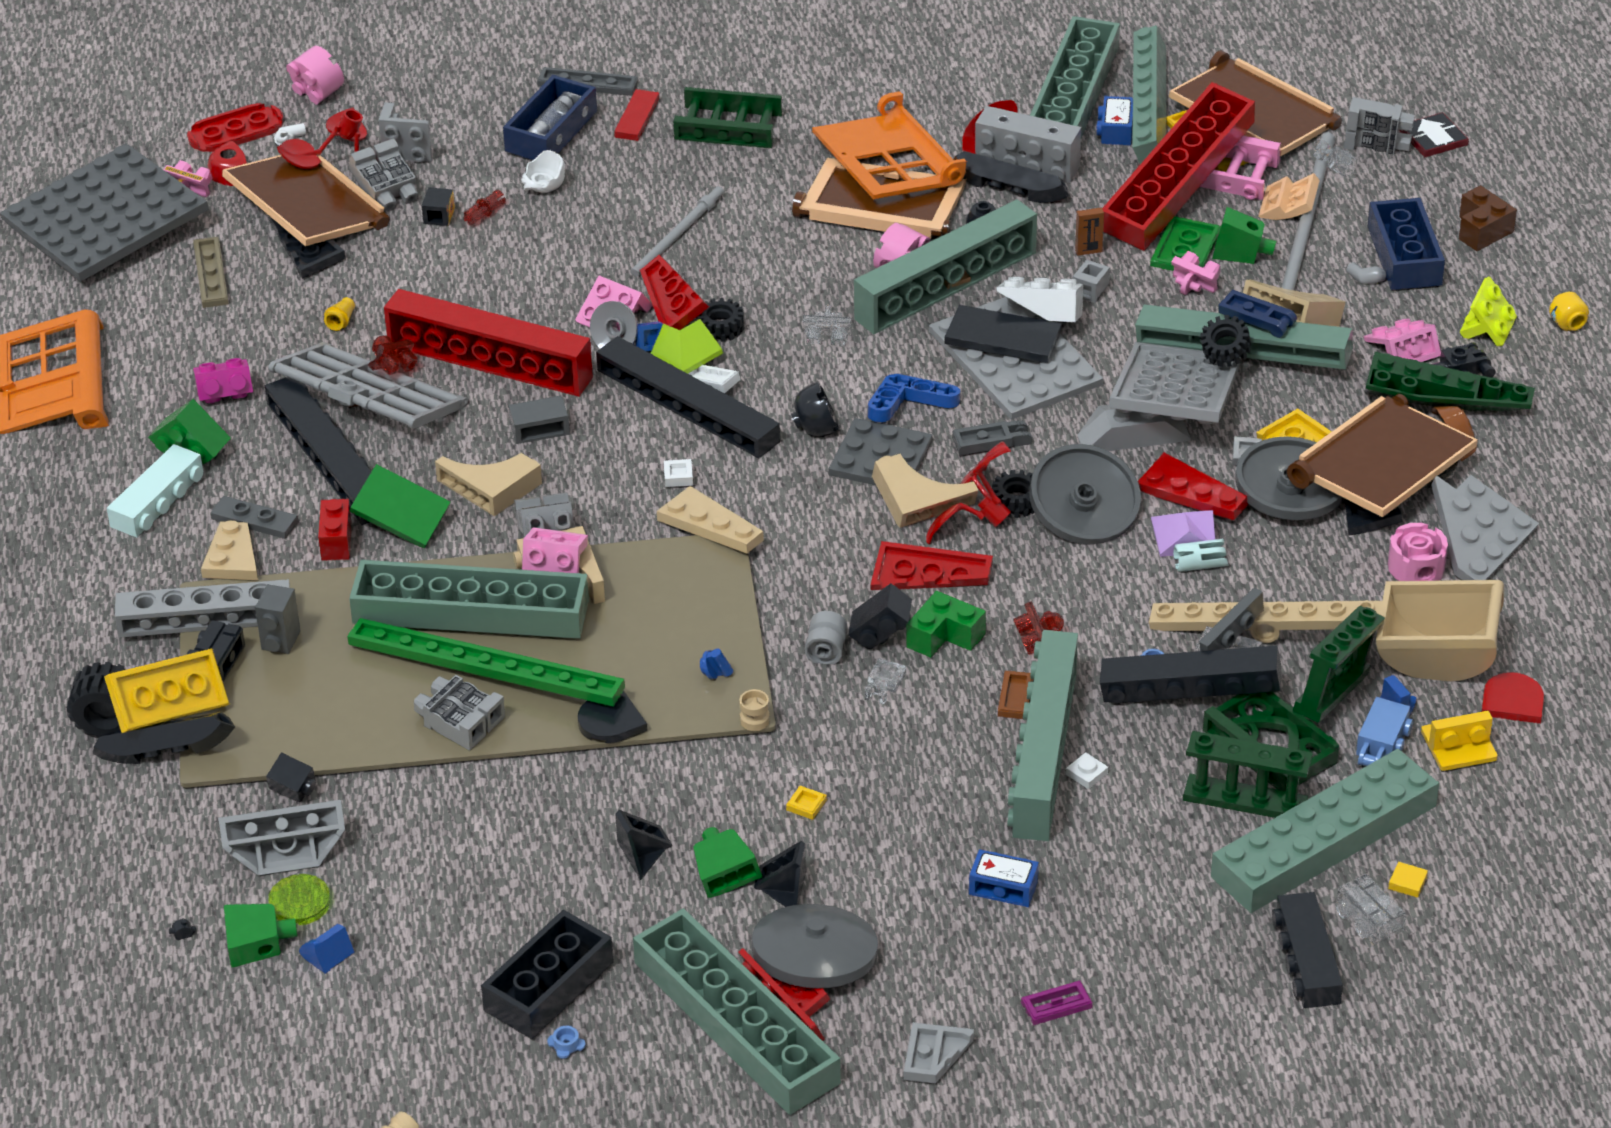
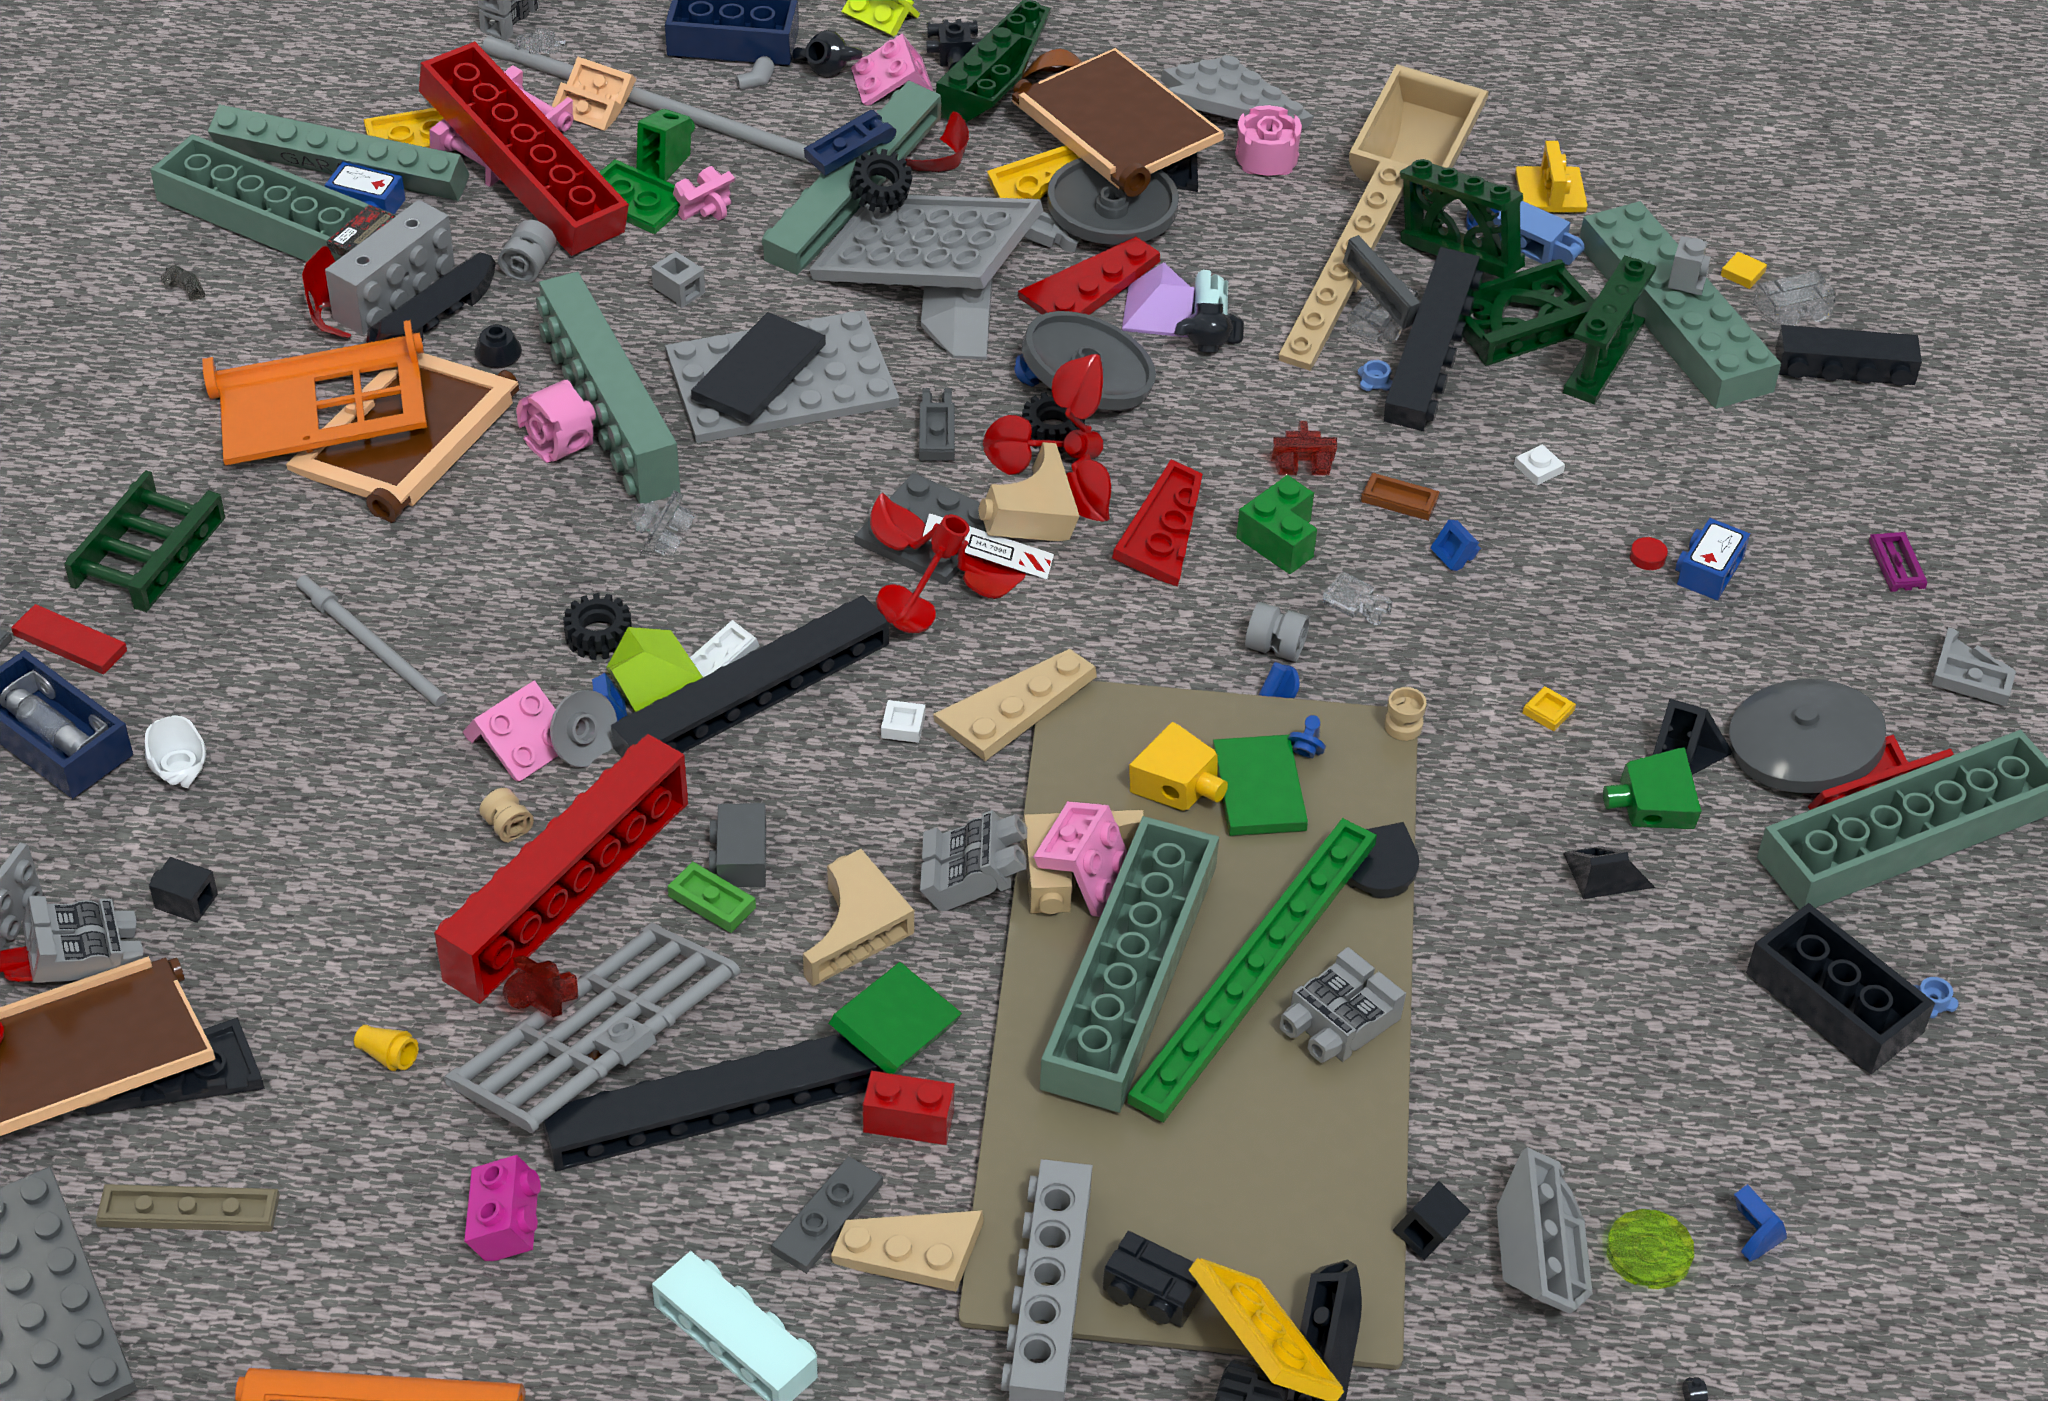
camera: 80 degrees left, 5 degrees up
(191, 429) = (622, 1263): green brick -> none
(255, 932) = (1723, 1303): green torso -> none
(277, 619) = (1126, 1182): dark grey piece -> none
(484, 207) = (207, 839): clear red axle -> none
(492, 418) = (711, 897): none -> bright green plate
(538, 312) = (510, 817): none -> tan wheel
(660, 599) = (1177, 770): none -> yellow torso
(664, 648) = (1261, 785): none -> green tile
(670, 294) = (556, 658): red wing -> none
(777, 648) = (1281, 682): none -> blue plate
(814, 411) = (842, 560): black cylinder -> none
(843, 489) = (902, 528): none -> red plant
(864, 490) = (1002, 550): none -> white sticker
(880, 617) = (1271, 568): black brick -> none
(900, 387) = (810, 485): blue beam -> none
(964, 726) = (1455, 545): none -> blue tile
(992, 72) = (190, 281): none -> clear smoke arm
(1005, 843) = (1648, 553): none -> red tile
(1043, 736) = (1505, 470): sand green brick -> none
(1045, 112) = (358, 229): none -> tile
(1049, 300) = (718, 307): white slope -> none
(1082, 200) = (527, 250): none -> light grey wheel
(1089, 231) = (597, 252): dark orange tile -> none
(1159, 556) = (1211, 327): none -> black piece
(1281, 110) = (375, 82): reddish brown door -> none
(1307, 306) = (821, 116): tan arch -> none
(1315, 393) = (956, 137): none -> red piece
(1332, 804) = (1690, 266): none -> light grey brick
(1402, 299) = (827, 53): none -> black piece
(1513, 697) = (1494, 140): red tile -> none

